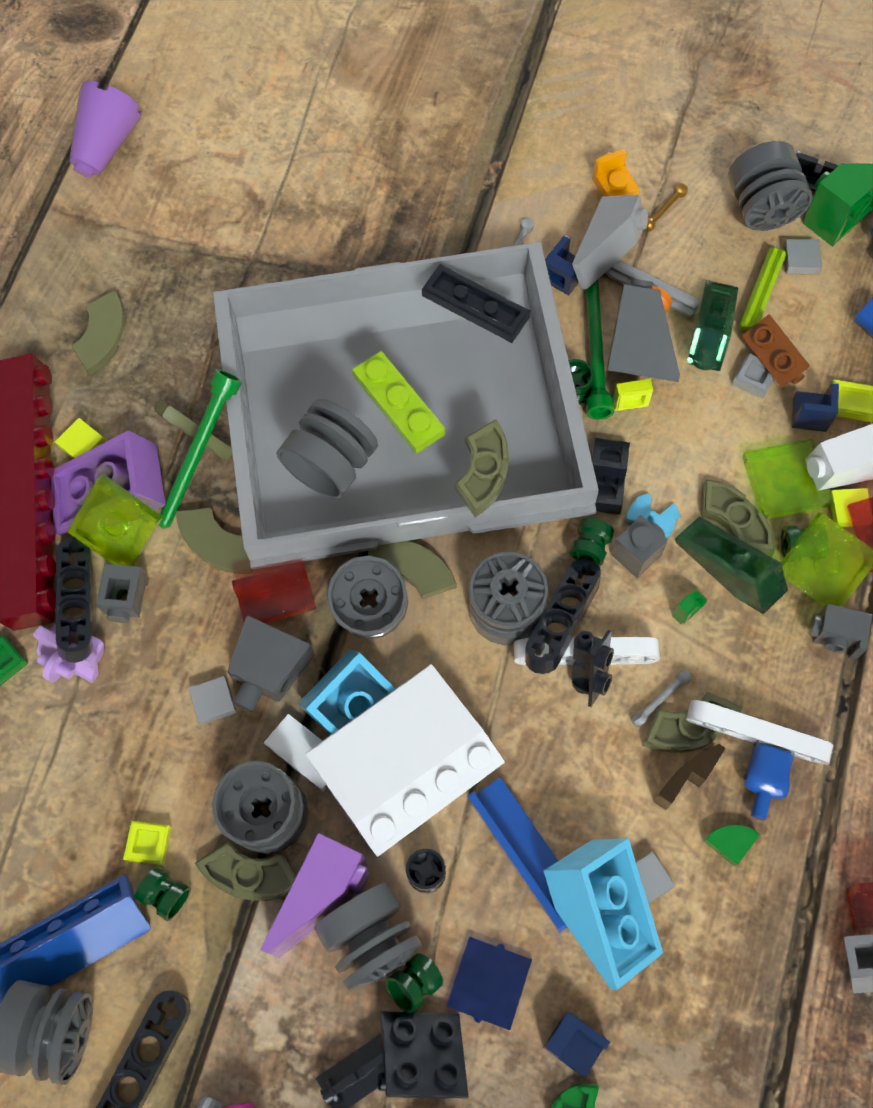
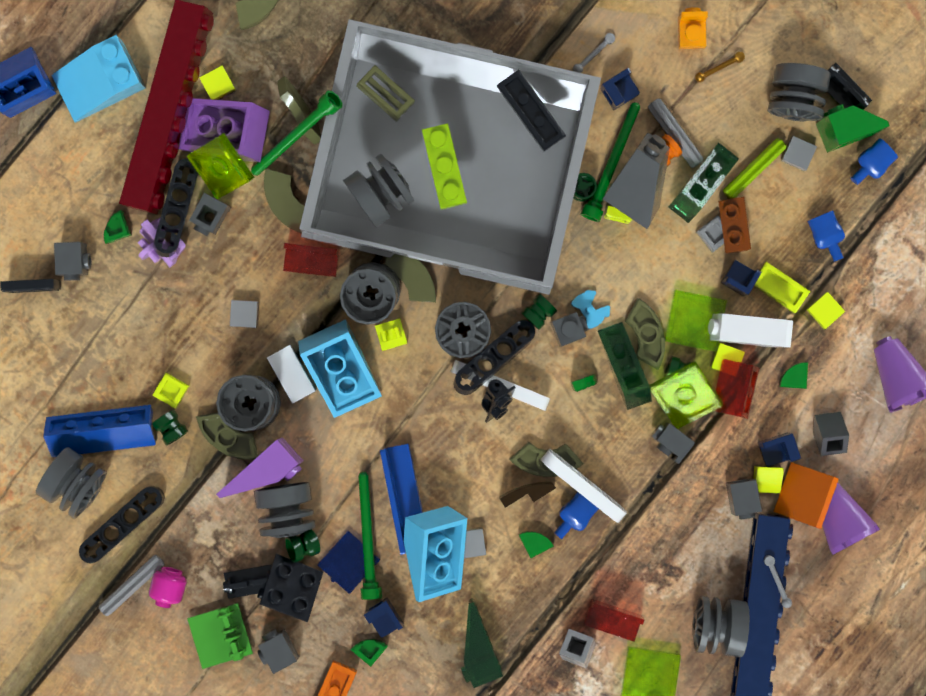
camera: 20 degrees right, 20 degrees up
(266, 663) = (287, 305): dark grey torso -> none
(288, 360) = (402, 109): none -> olive tile
(404, 759) = (350, 410): white slope -> none
(416, 648) = (391, 334): none -> neon yellow tile
(428, 865) = (337, 486): black wheel -> none
(487, 468) = (483, 242): olive tile -> none
(536, 1004) = (371, 587): none -> green piece
(609, 237) = (663, 81): light grey slope -> none
(610, 469) = (574, 265): black slope -> none
(639, 718) = (515, 442): light grey hinge -> none
(734, 1035) = (479, 655): none -> clear green slope

